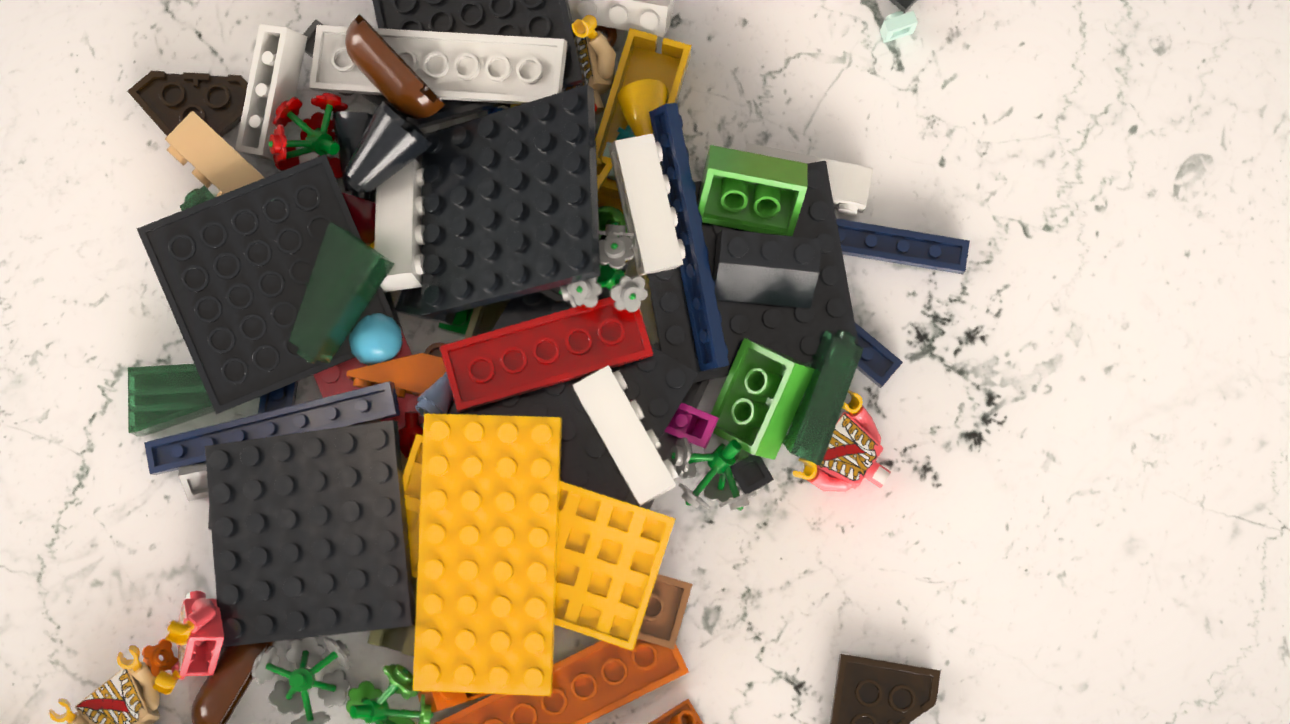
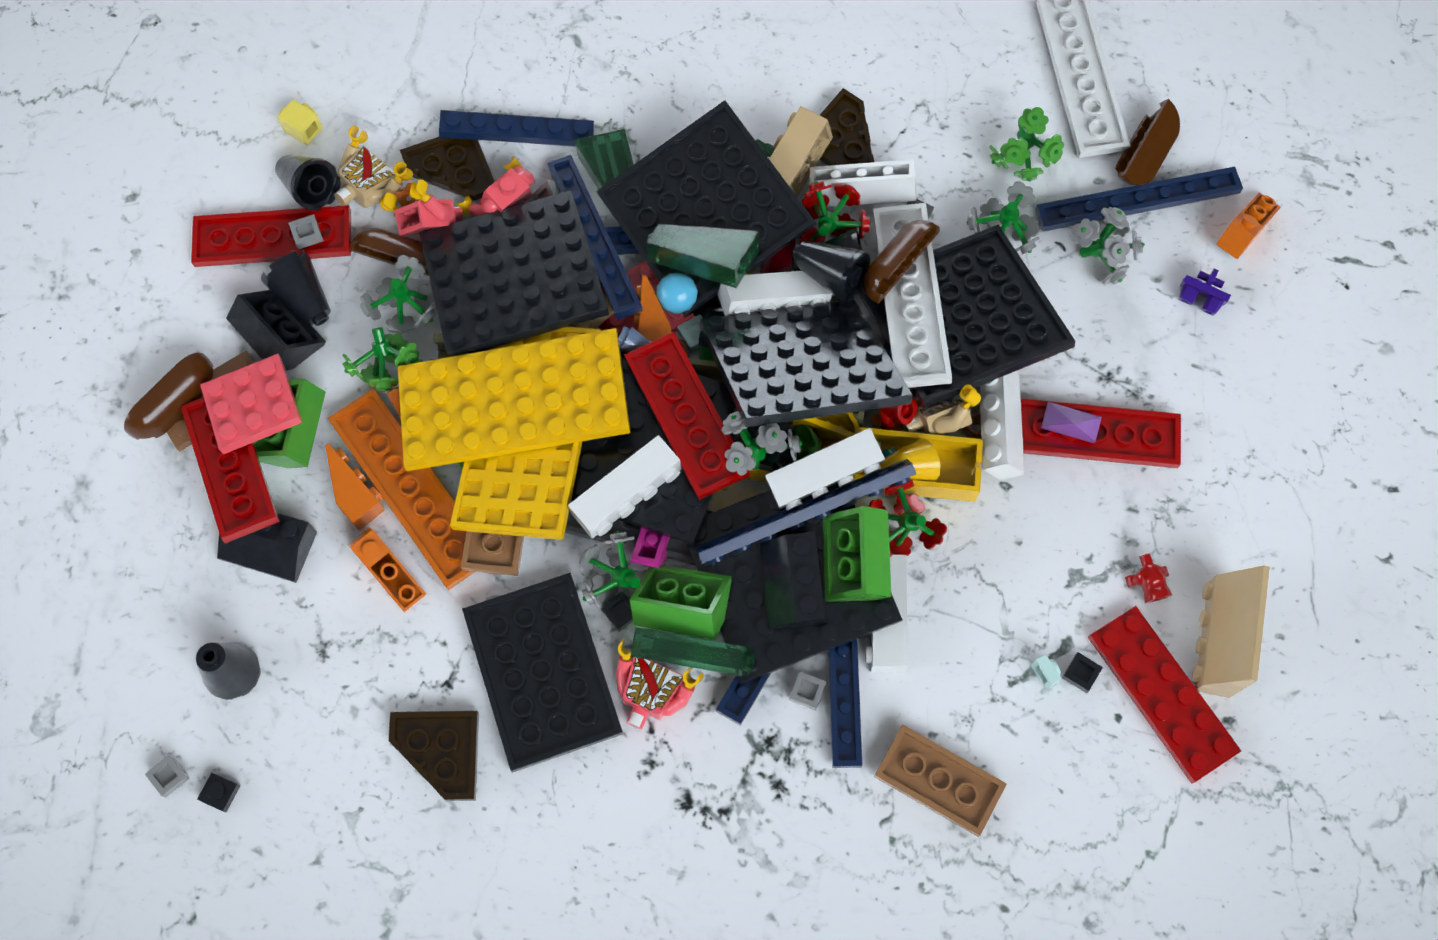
camera: 80 degrees right, 10 degrees down
(90, 508) = (513, 128): none -> dark blue plate
(121, 595) = (450, 165): none -> dark brown plate
(187, 532) = (507, 191): none -> coral torso
(420, 332) = (690, 332): none -> light aqua plate
(720, 114) = (910, 520): none -> red plant
(805, 574) = (541, 672): none -> black plate
(876, 283) = (807, 690): none -> light grey plate
(995, 163) = (940, 780): none -> medium nougat plate

